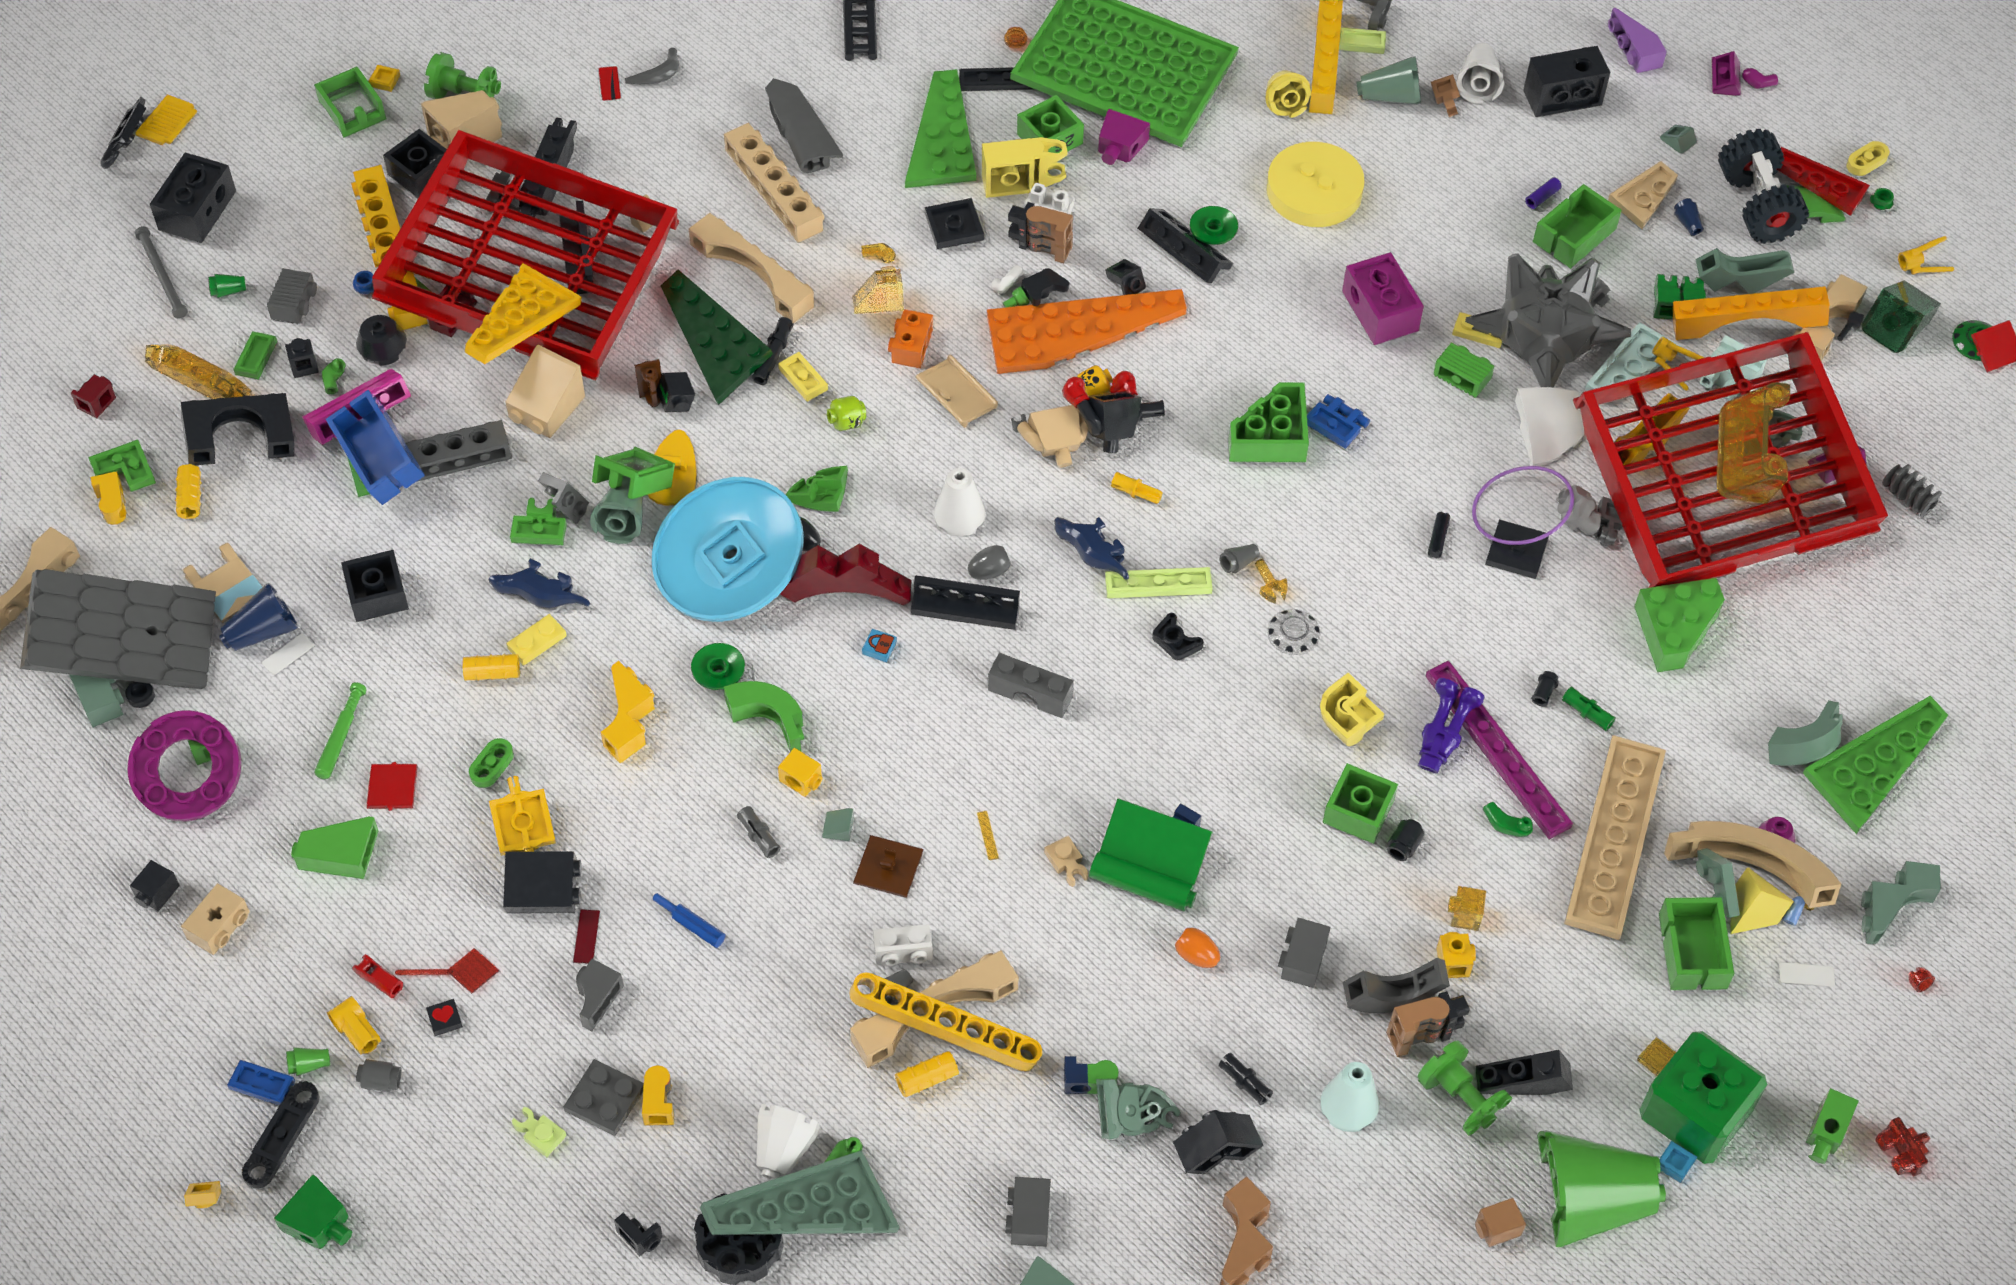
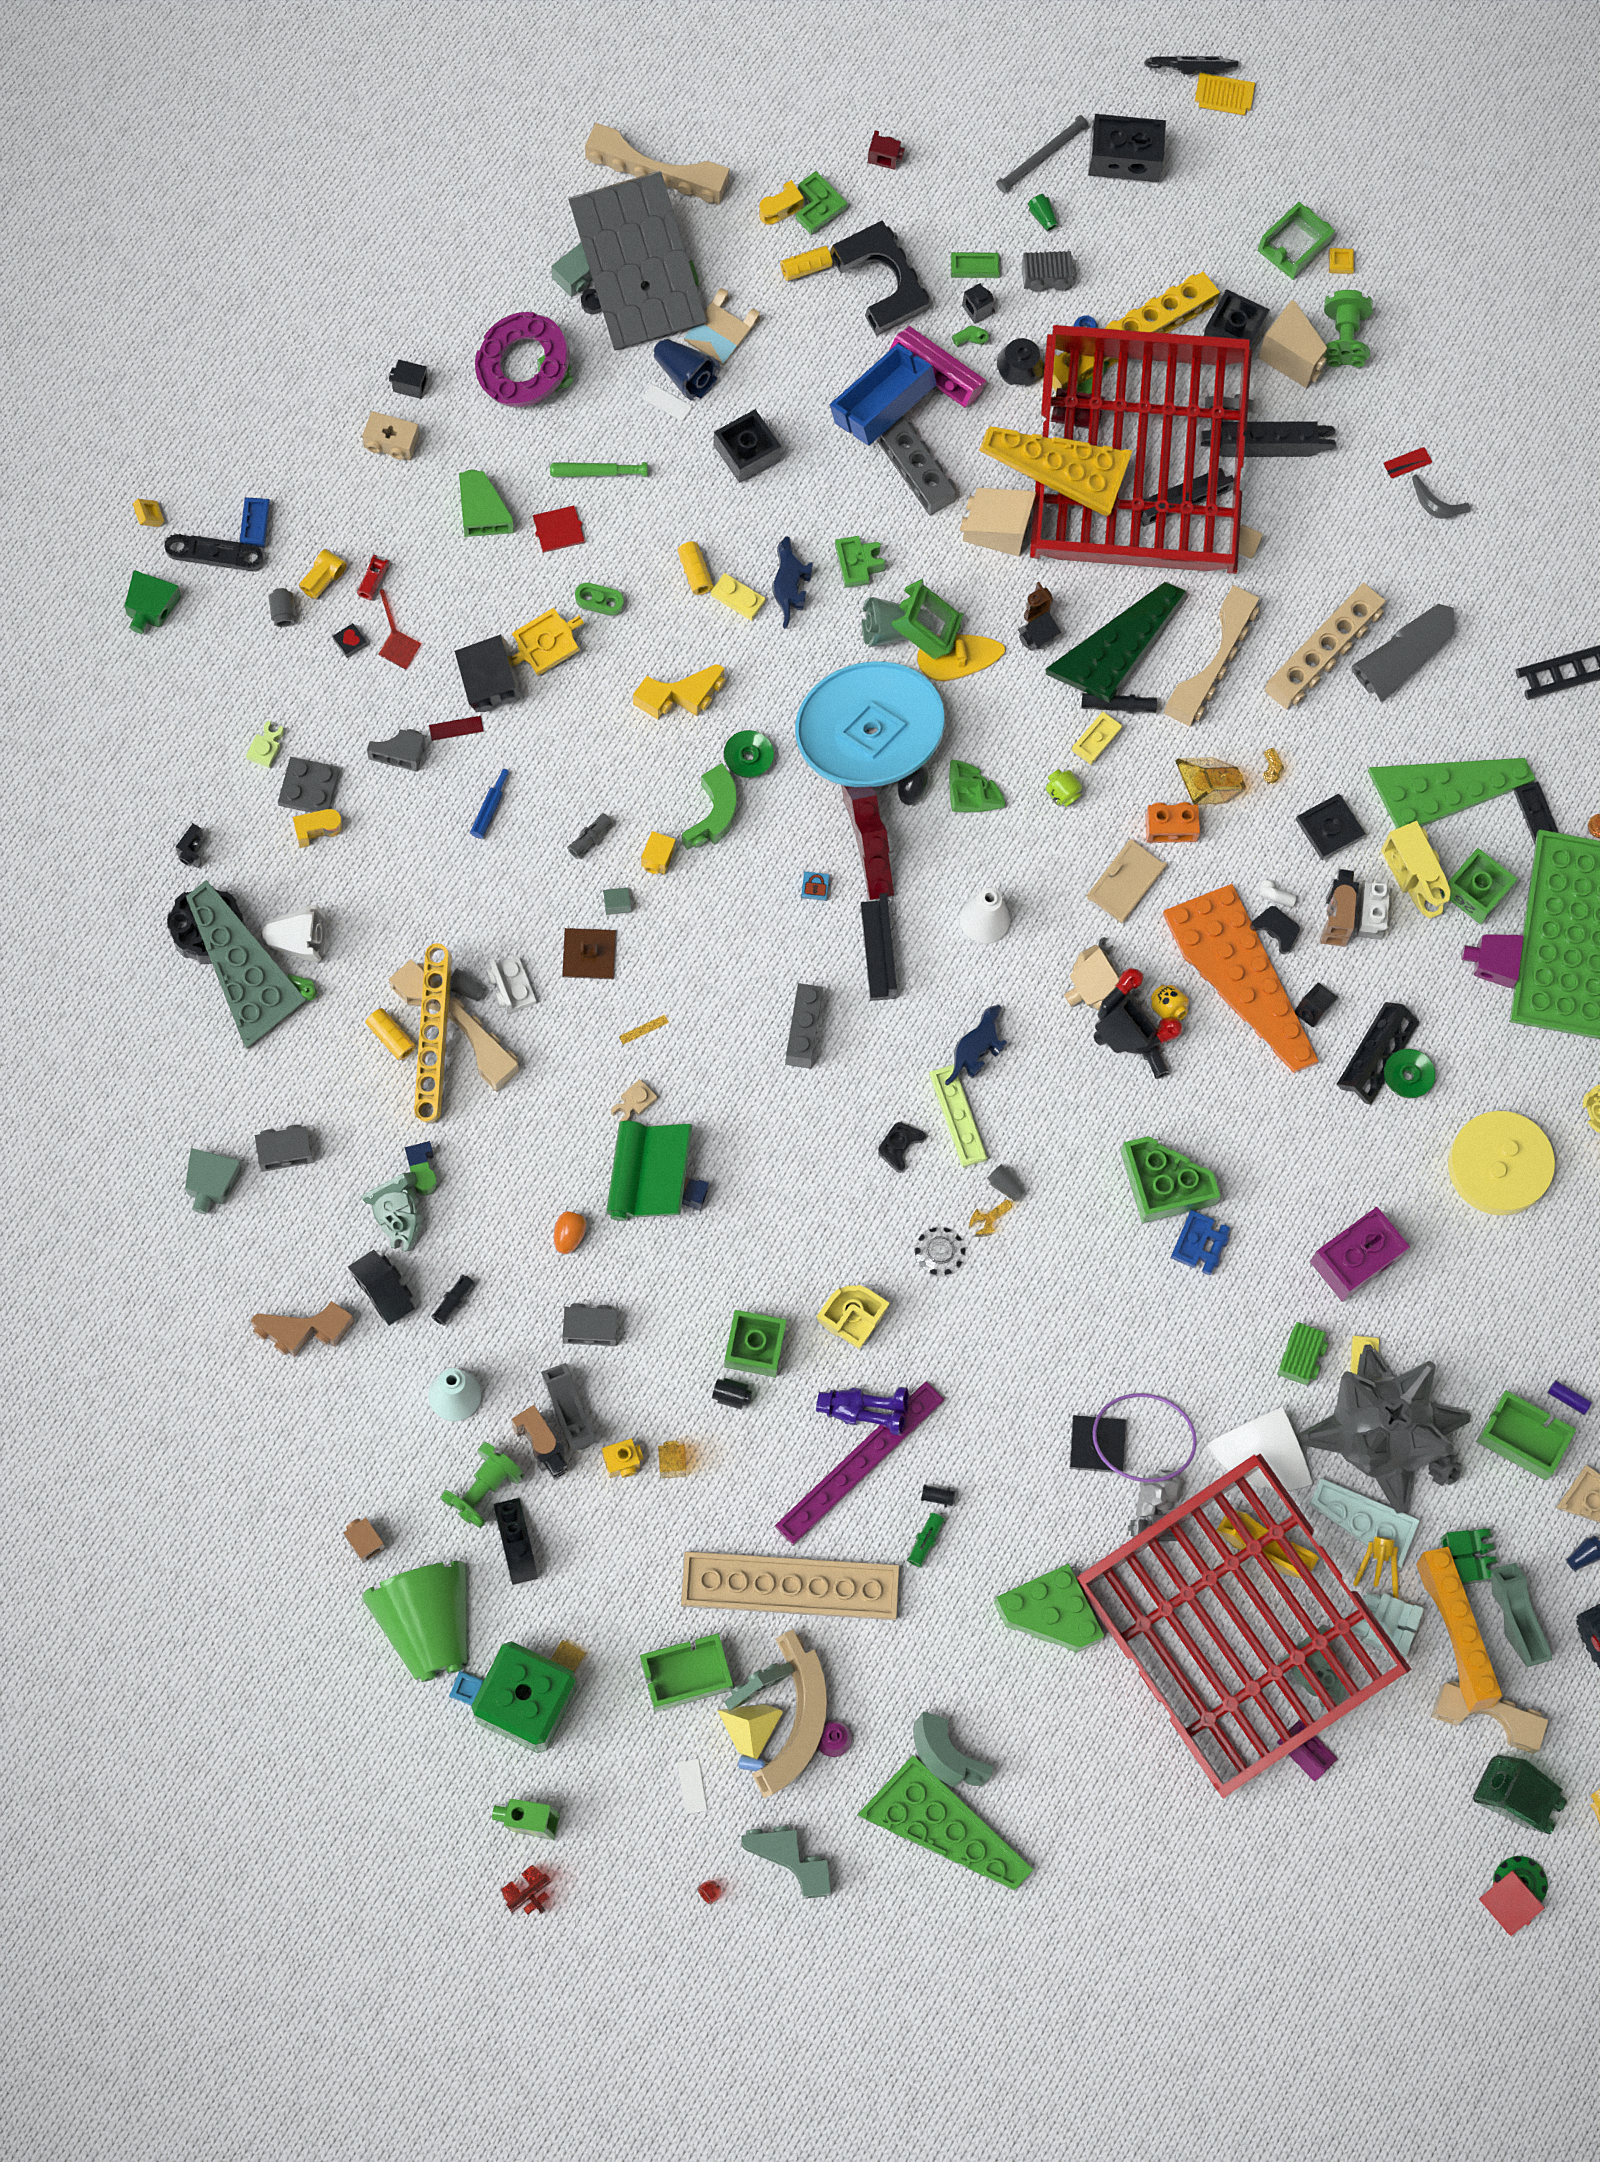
camera: 70 degrees right, 15 degrees up
(194, 372) = (936, 225): clear yellow brick -> none
(306, 1060) = (282, 547): bright green cone -> none
(566, 498) = (885, 572): dark grey bracket -> none
(989, 563) = (929, 958): dark grey animal -> none
(1019, 298) = (1255, 909): bright green piece -> none
(1136, 488) = (1059, 1071): yellow axle -> none
(1439, 534) = (1091, 1365): black axle -> none
(1507, 824) = (776, 1483): green arm -> none
(1743, 458) = (1291, 1624): clear yellow windscreen -> none
(1855, 320) = (1501, 1746): black hand -> none
(1911, 490) = (1285, 1827): dark grey piece -> none

